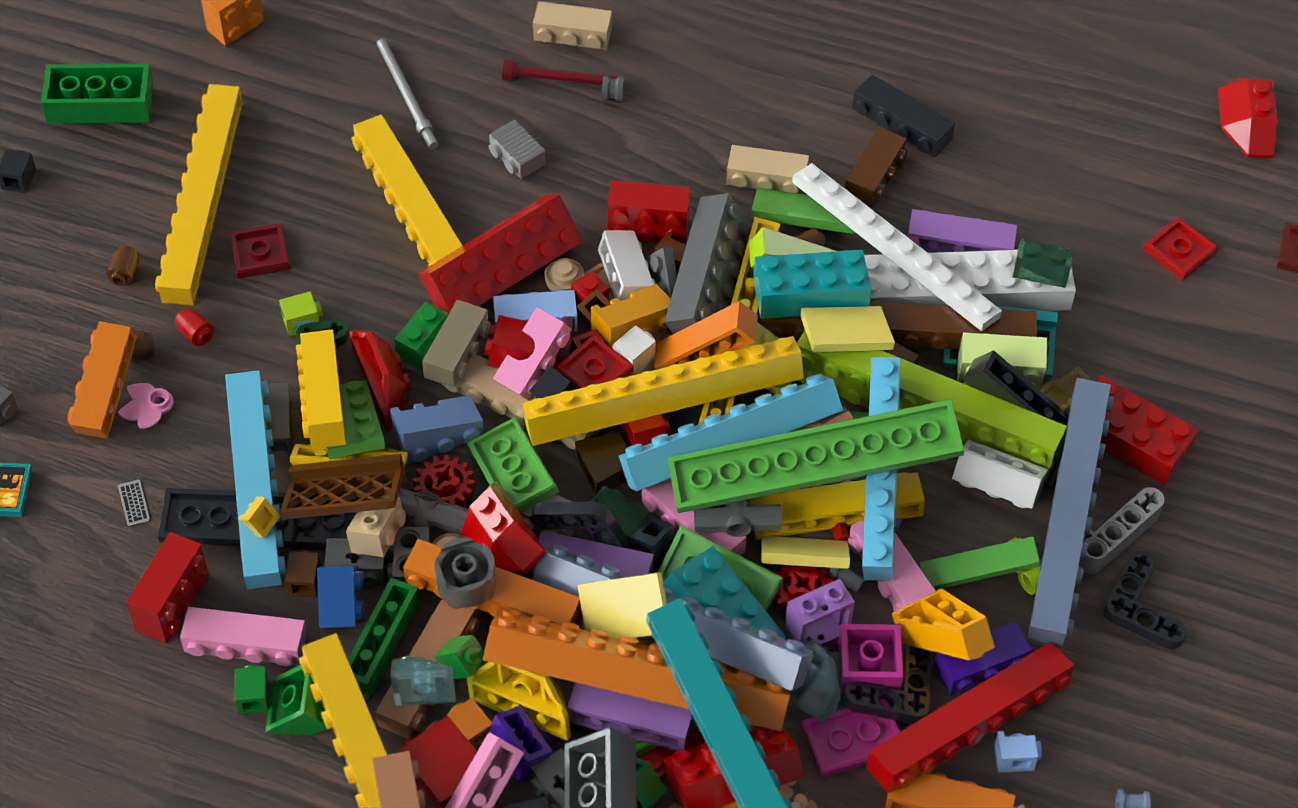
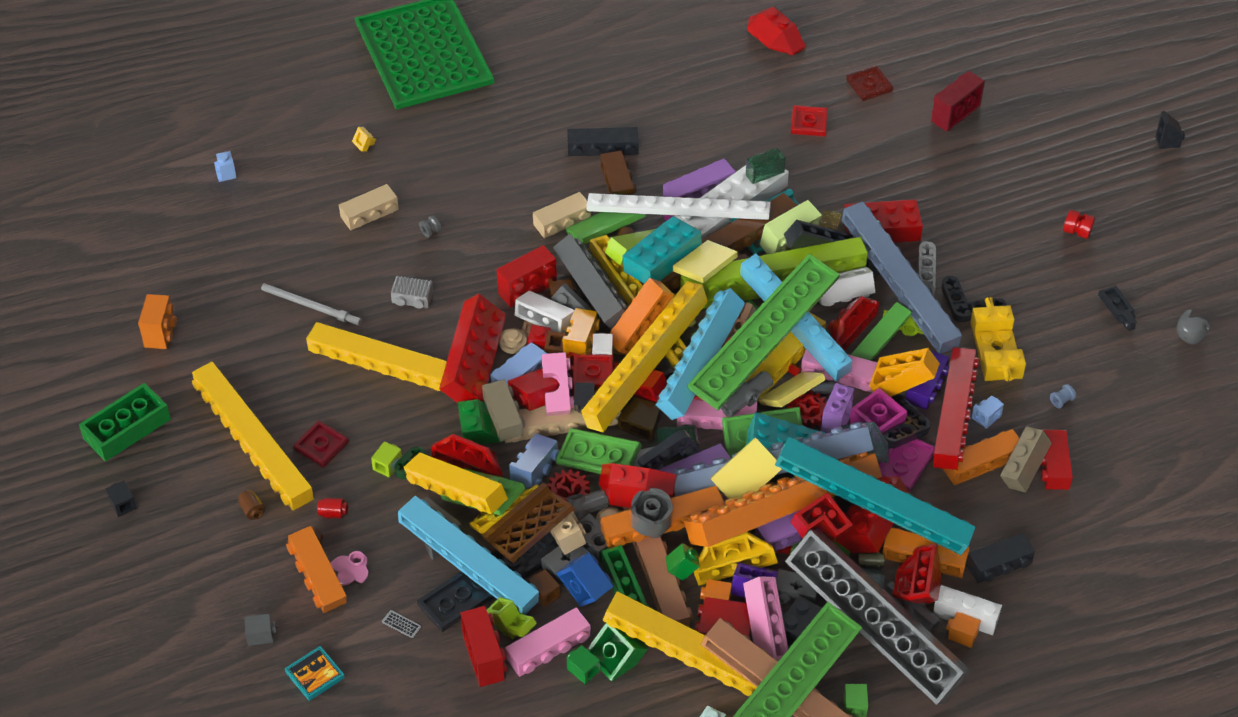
camera: 40 degrees left, 5 degrees down
(229, 579) = (509, 620): none -> lime brick
(260, 517) = (503, 568): yellow tile -> none
(421, 681) = (679, 585): clear light blue slope -> none
(513, 70) = (359, 253): dark red piece -> none
(651, 720) = (822, 514): none -> red brick
(654, 538) = (708, 435): black brick -> none
(961, 526) = (853, 321): none -> red wedge
(1135, 656) = (991, 328): none -> yellow brick

